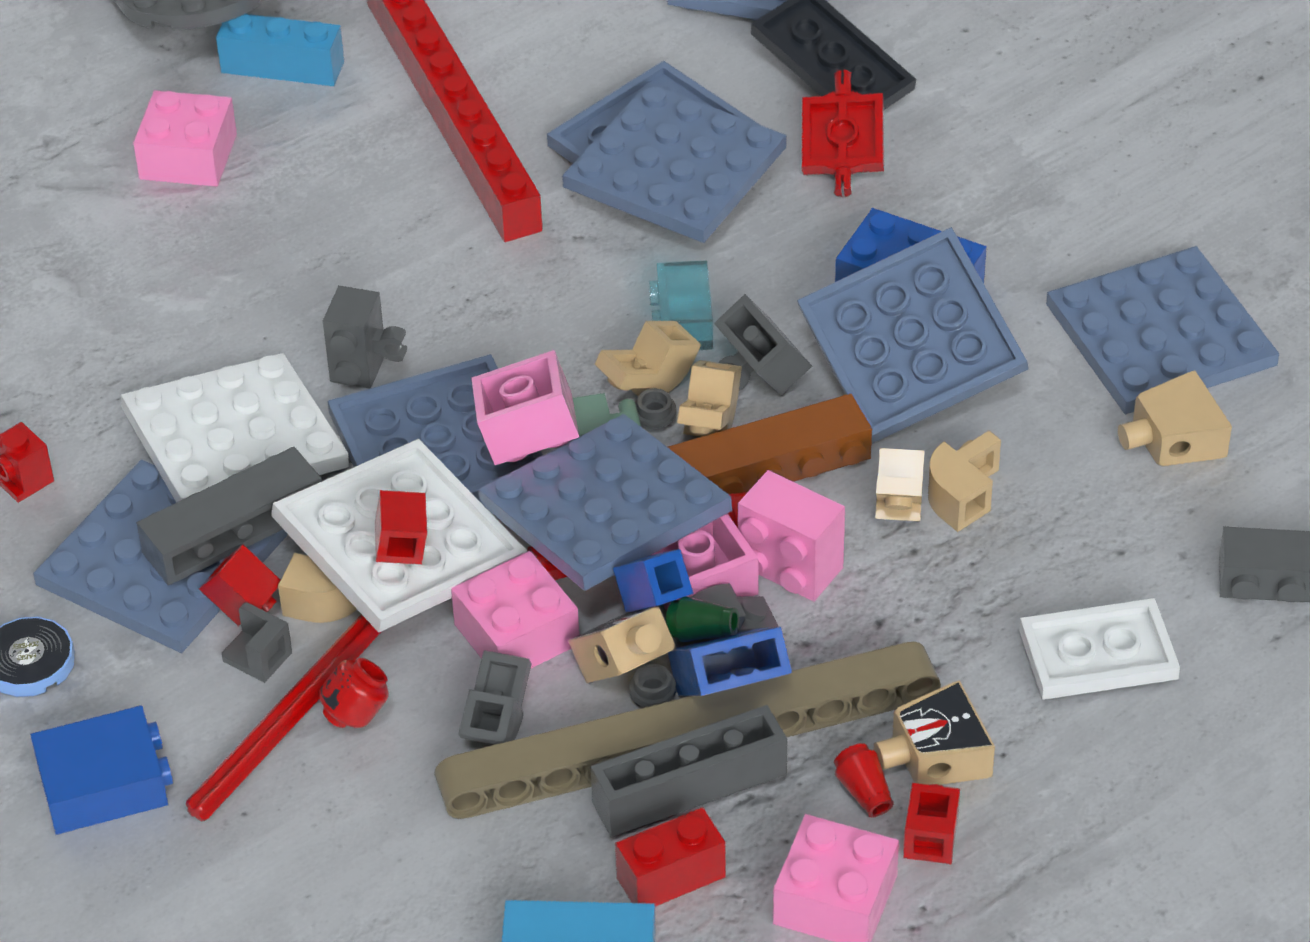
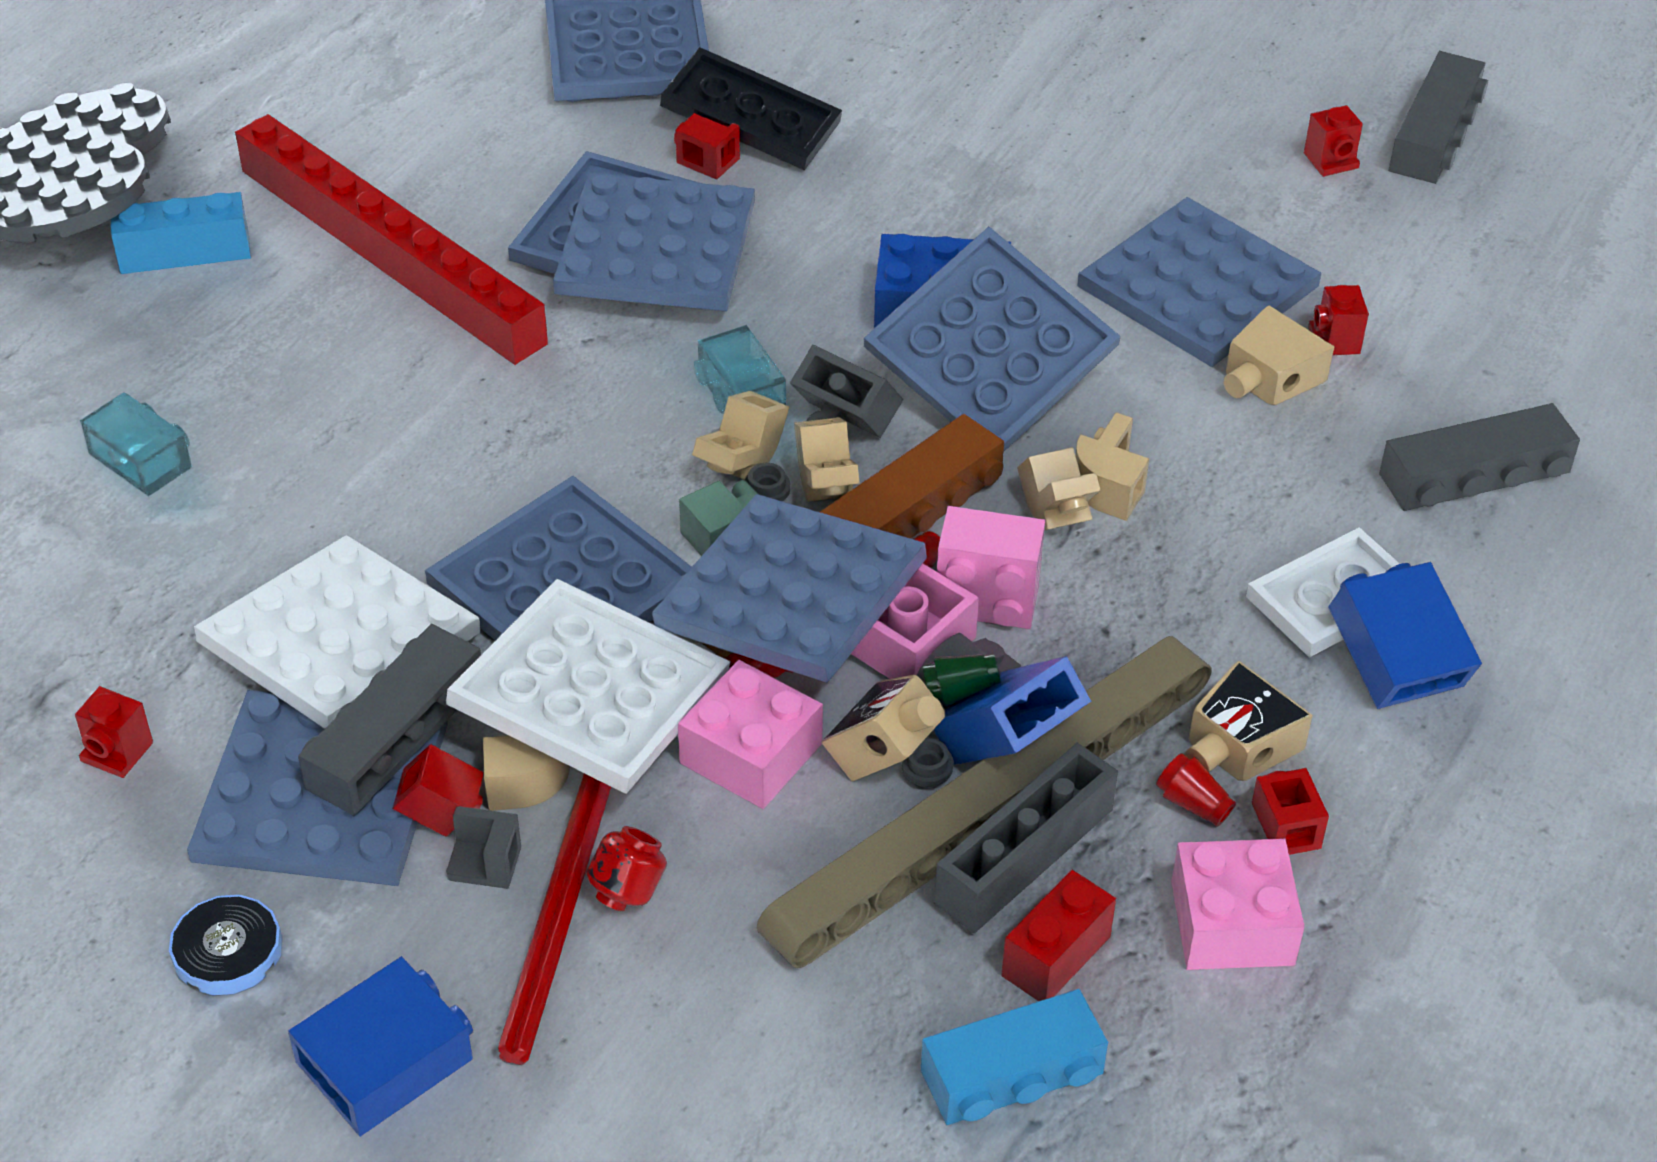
camera: 25 degrees left, 0 degrees up
(156, 227) = (137, 443): none -> clear light blue brick
(185, 138) = (123, 345): bright pink brick -> none
(357, 337) = (429, 495): dark grey brick -> none
(400, 527) = (602, 673): red brick -> none
(495, 704) = (782, 826): dark grey brick -> none
(524, 408) = (659, 514): bright pink brick -> none
(653, 580) = (895, 650): blue brick -> none
(776, 82) = (707, 145): none -> red brick
(842, 133) = (803, 176): red plate -> none
(1127, 703) = (1404, 634): none -> blue brick
(1261, 404) = (1341, 318): none -> red brick

